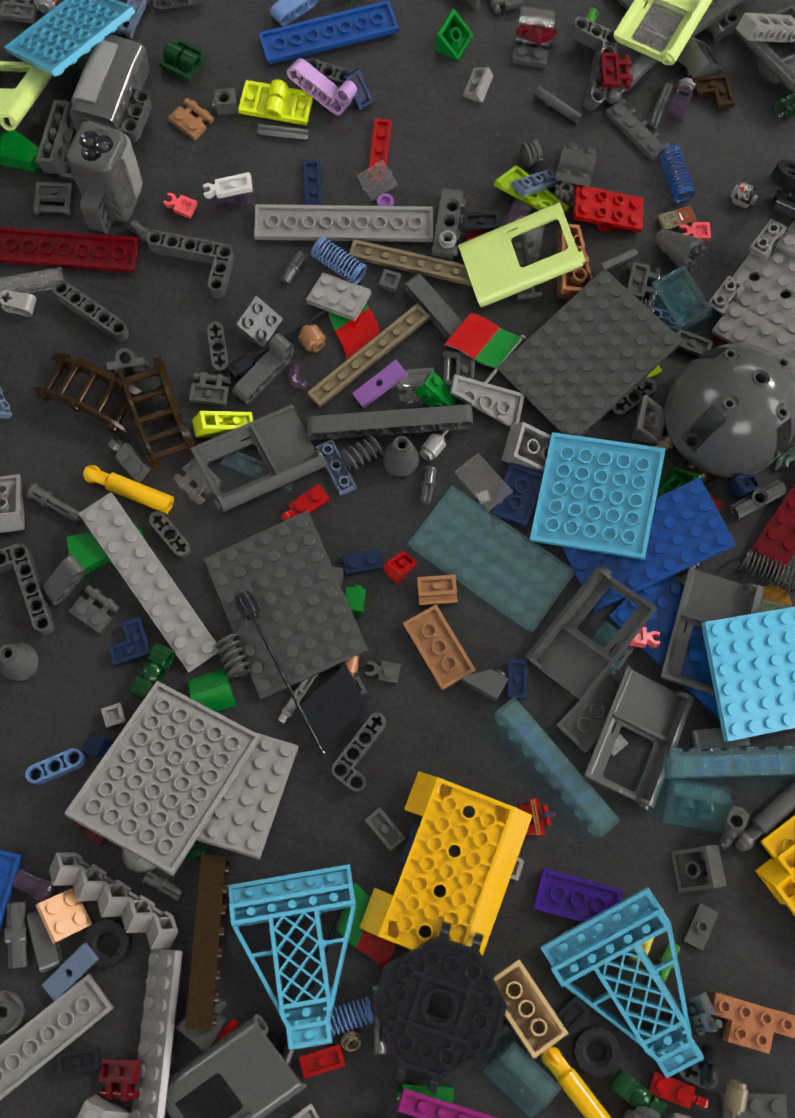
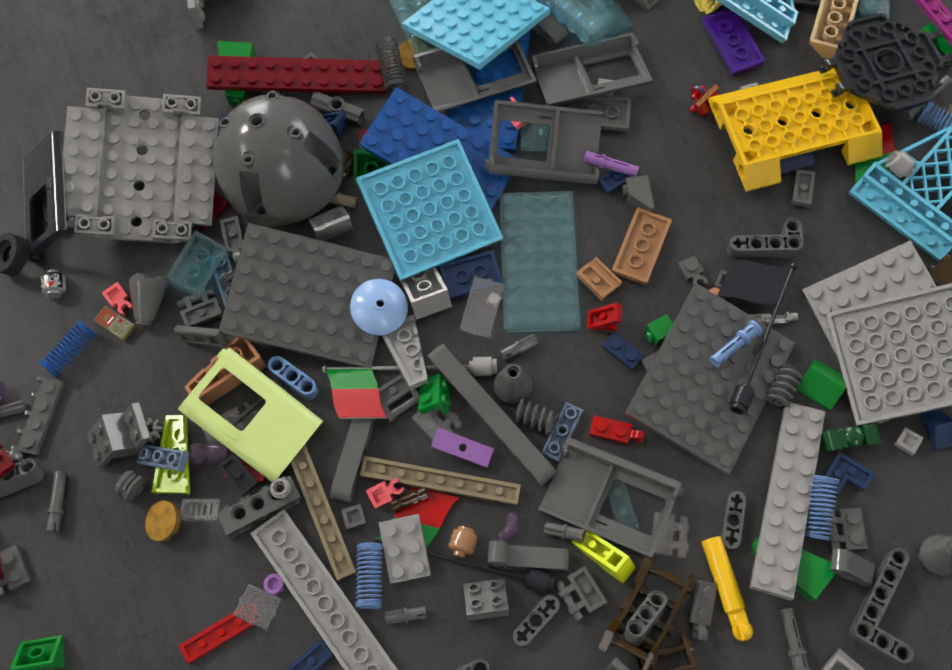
camera: 120 degrees left, 5 degrees down
(134, 608) = (817, 479): none -> medium blue piece
(156, 396) = (650, 612): none -> dark grey beam
(260, 409) = (564, 531): none -> dark grey axle
(292, 647) = (741, 338): none -> medium blue pin
(333, 919) = (900, 164): none -> light grey head
(372, 324) = (409, 499): none -> dark brown axle
(390, 309) = (382, 494): none -> coral plate
(478, 84) = (79, 594): light grey slope -> none
(480, 183) = (187, 508): none -> clear slope
(487, 158) = (162, 521): none -> pearl gold tile
(536, 302) = (289, 370): none -> medium blue beam
(542, 411) = (377, 319): none -> light blue dish
(550, 665) = (609, 163): none -> medium lavender pin
(557, 768) = (658, 109): clear light blue brick -> none
(608, 209) = (146, 380): red plate -> none

